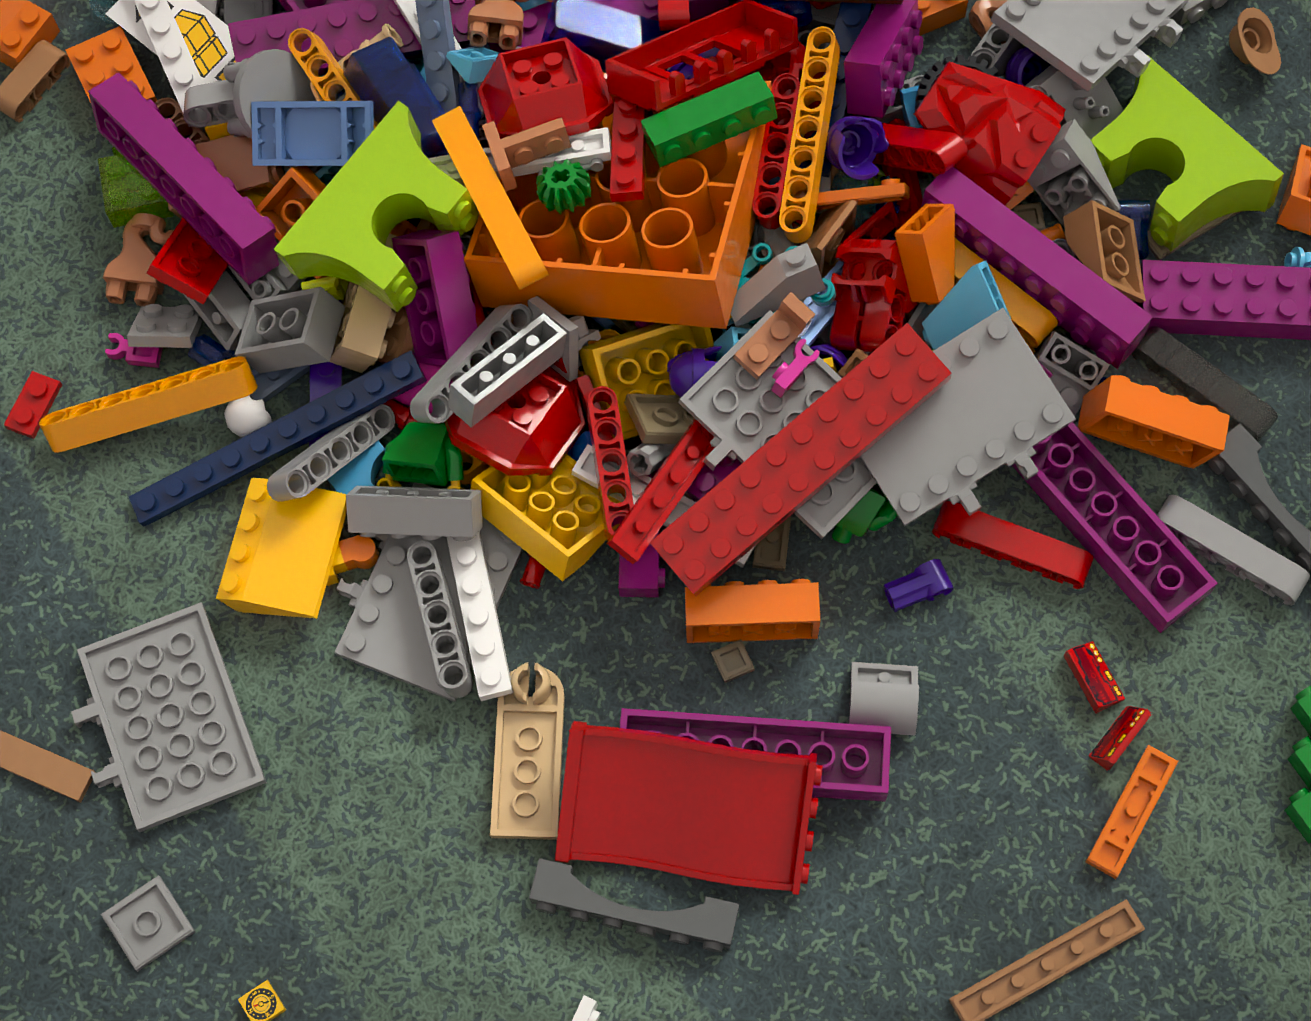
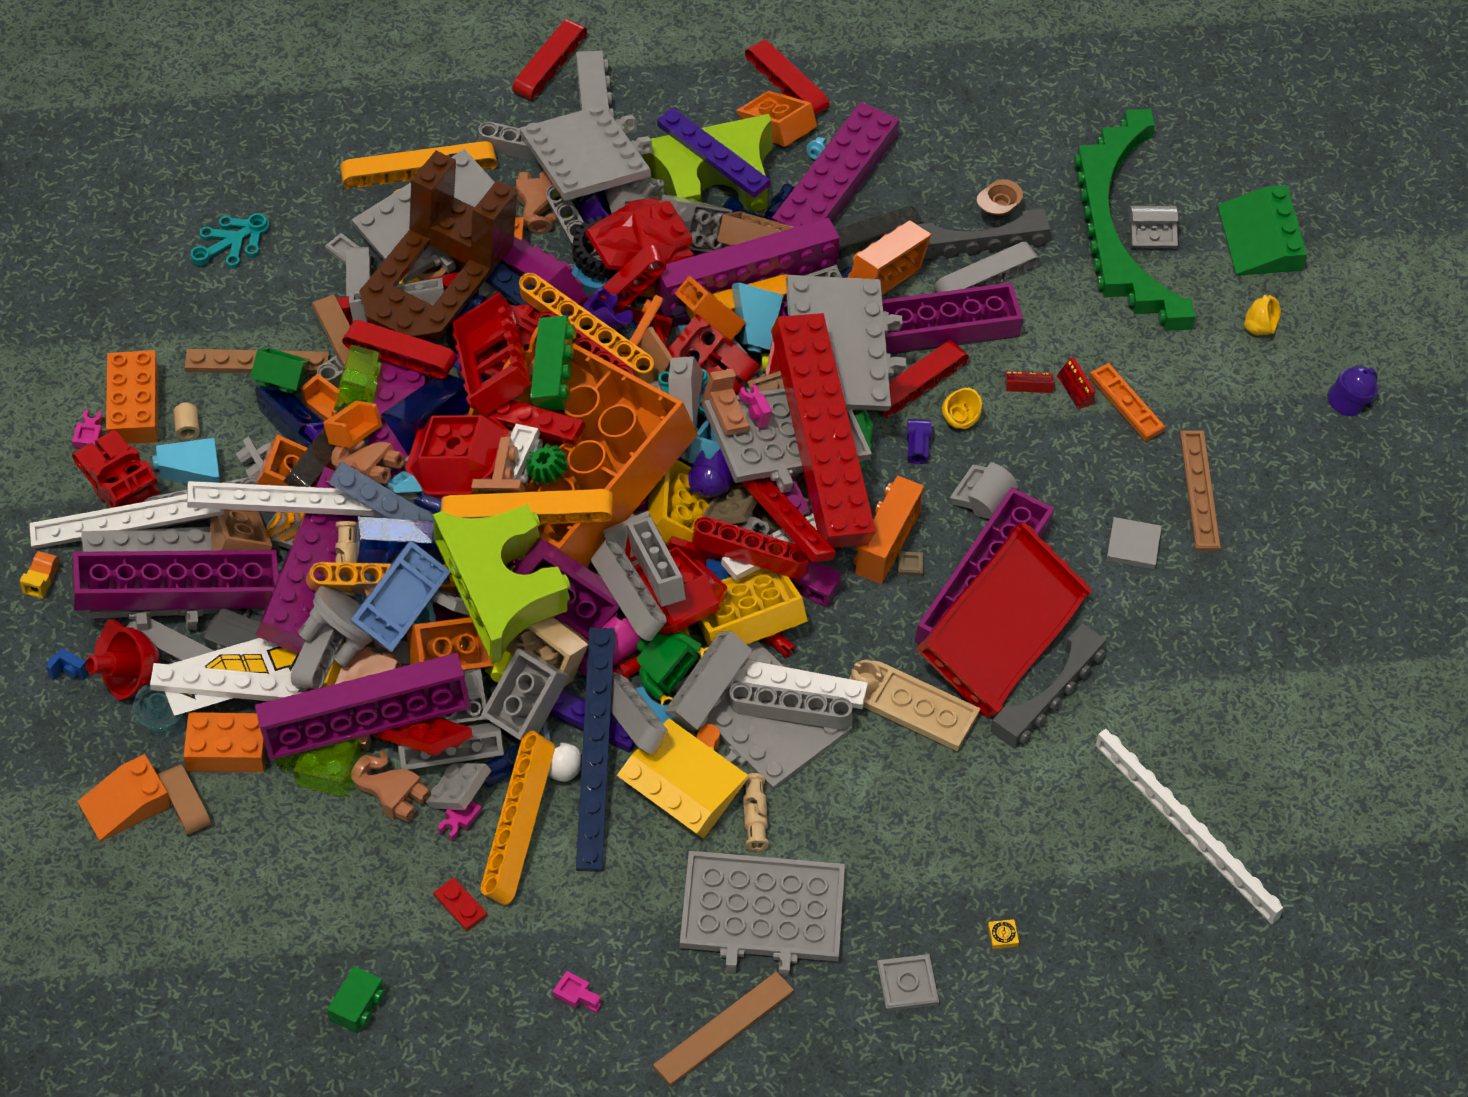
camera: 70 degrees left, 15 degrees down
(295, 646) = (755, 813): none -> tan piece
(914, 916) = (1134, 543): none -> light grey tile
(983, 612) = (962, 408): none -> yellow hair
(1179, 143) = (713, 152): none -> dark purple plate
(1187, 255) = (778, 200): none -> clear blue pin
(1255, 41) = (652, 97): medium nougat piece -> none

